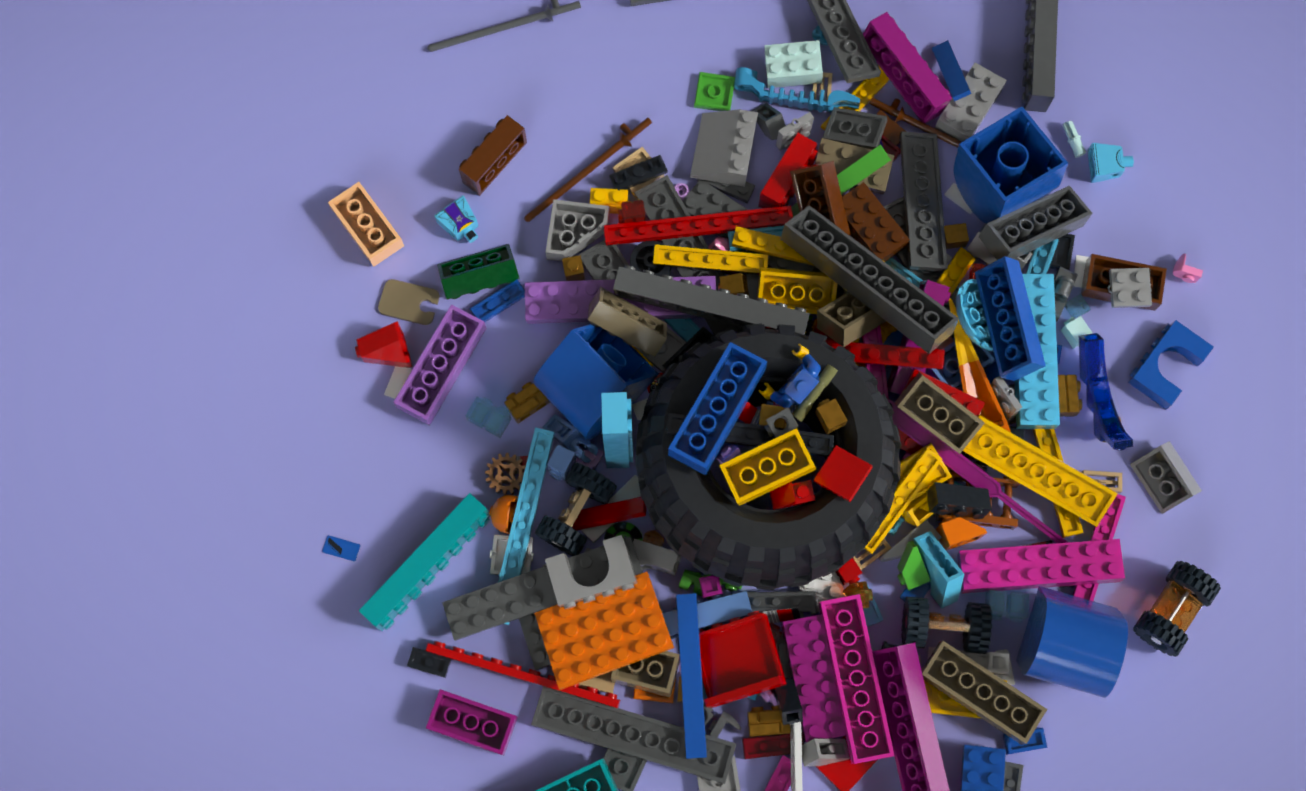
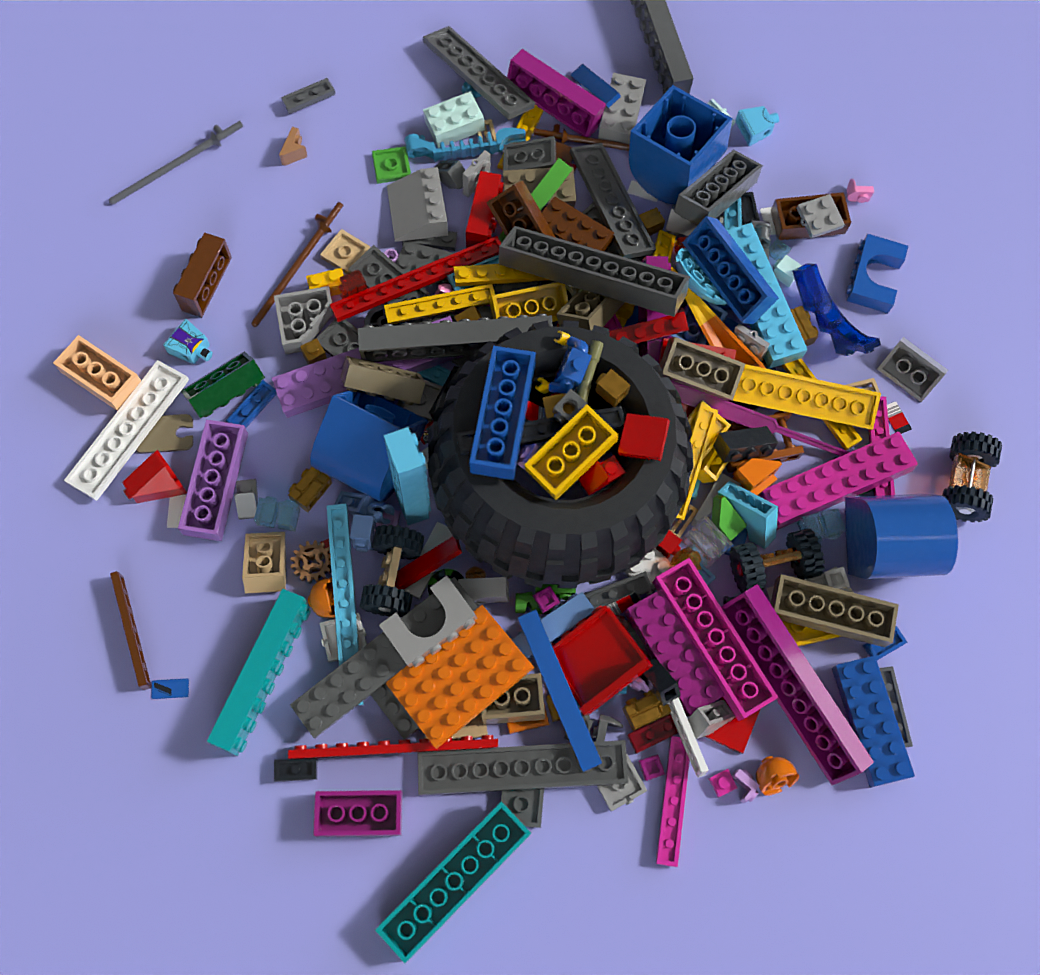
camera: 25 degrees left, 5 degrees down
(322, 482) = (131, 631): none -> reddish brown tile
(376, 288) = (126, 430): none -> white plate
(462, 459) = (264, 562): none -> tan slope
(465, 391) = (246, 498): none -> slope
(620, 47) = (292, 148): none -> medium nougat slope
(638, 173) = (346, 251): black plate -> none
(754, 777) = (651, 767): none -> magenta tile
(885, 583) = (707, 541): none -> clear brick
(968, 545) = (765, 484): none -> orange tile
(1130, 522) = (897, 418): none -> sticker

